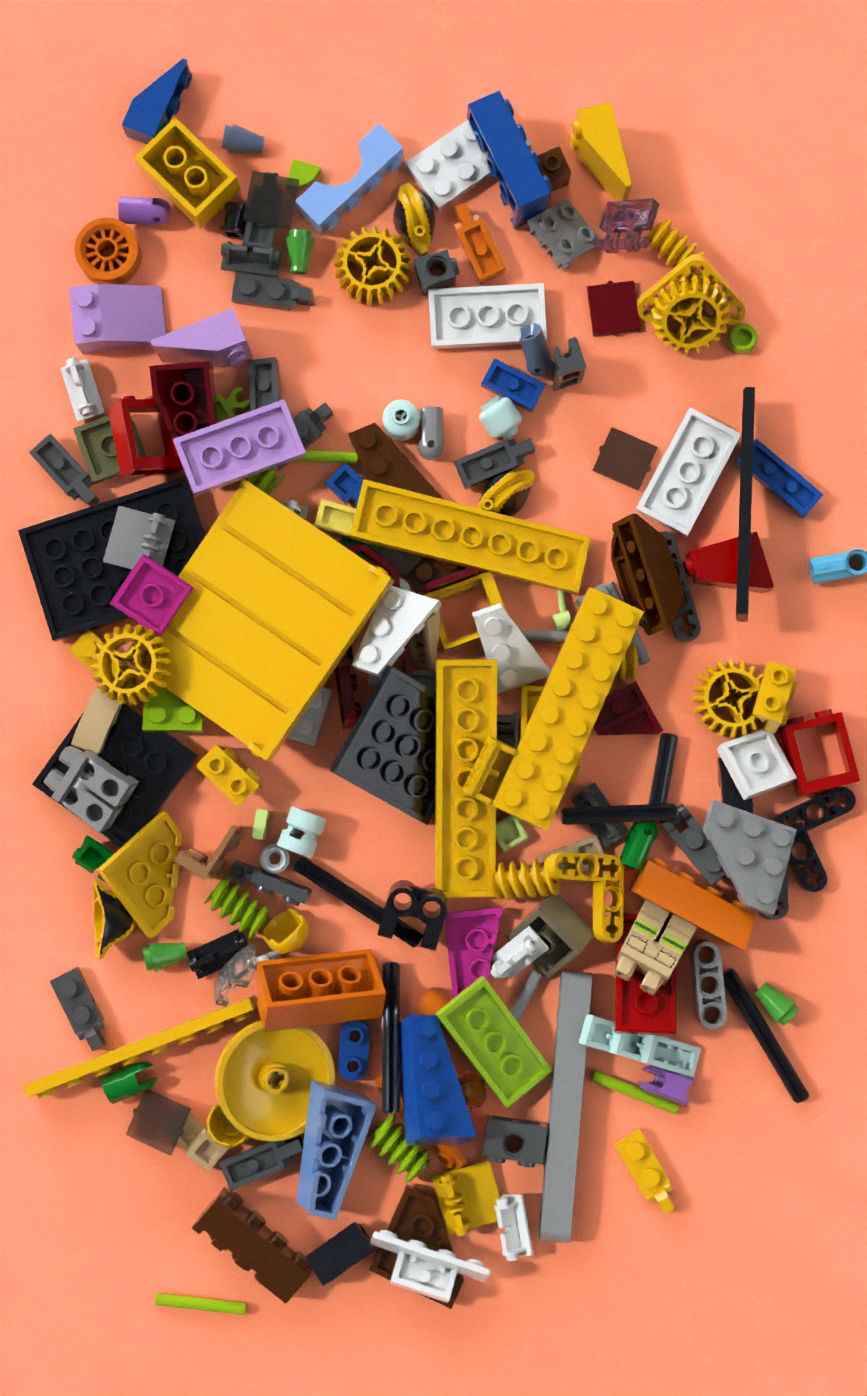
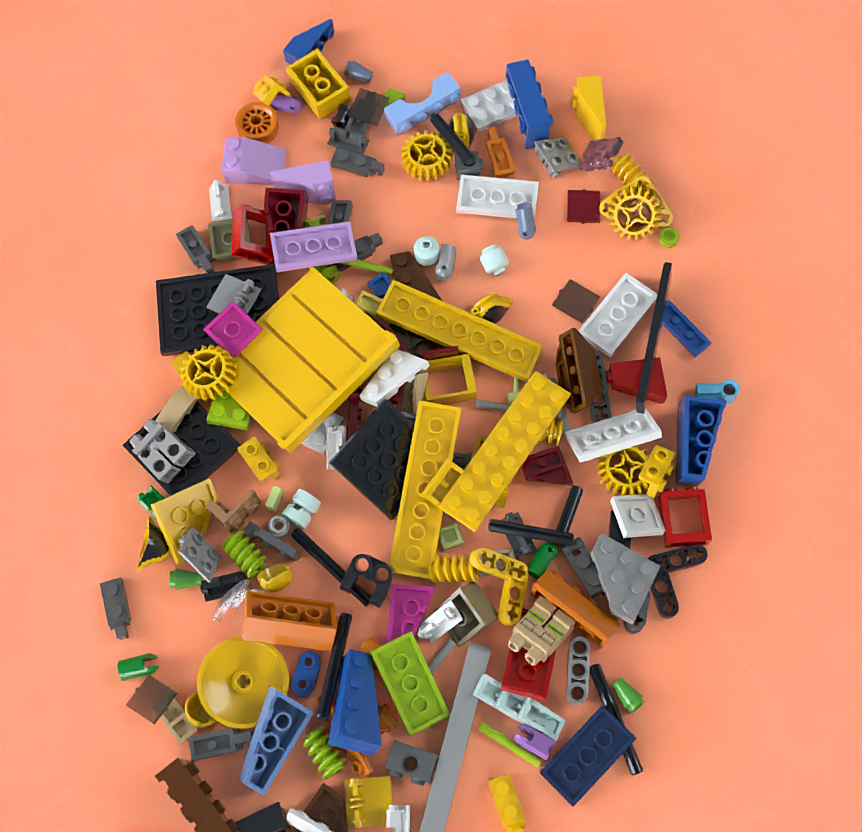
camera: 15 degrees right, 15 degrees down
(115, 194) = (268, 88): none -> yellow bracket
(129, 1053) = (160, 640): yellow plate -> none
(178, 922) = (199, 554): none -> light grey hinge
(299, 250) = (381, 139): bright green cone -> none
(329, 734) = (334, 441): none -> white hinge
(406, 236) = (452, 139): none -> black axle
(492, 461) = (478, 287): dark grey hinge -> none
(503, 640) = (475, 415): white wing -> none
(514, 384) = (511, 243): blue plate -> none
(555, 167) = (558, 114): reddish brown brick -> none
(569, 368) = (545, 233): dark grey hinge -> none
(708, 658) = (612, 435): none -> white plate
(737, 1090) = (587, 755): none -> dark blue tile
(820, 639) = (696, 436): none -> blue wedge

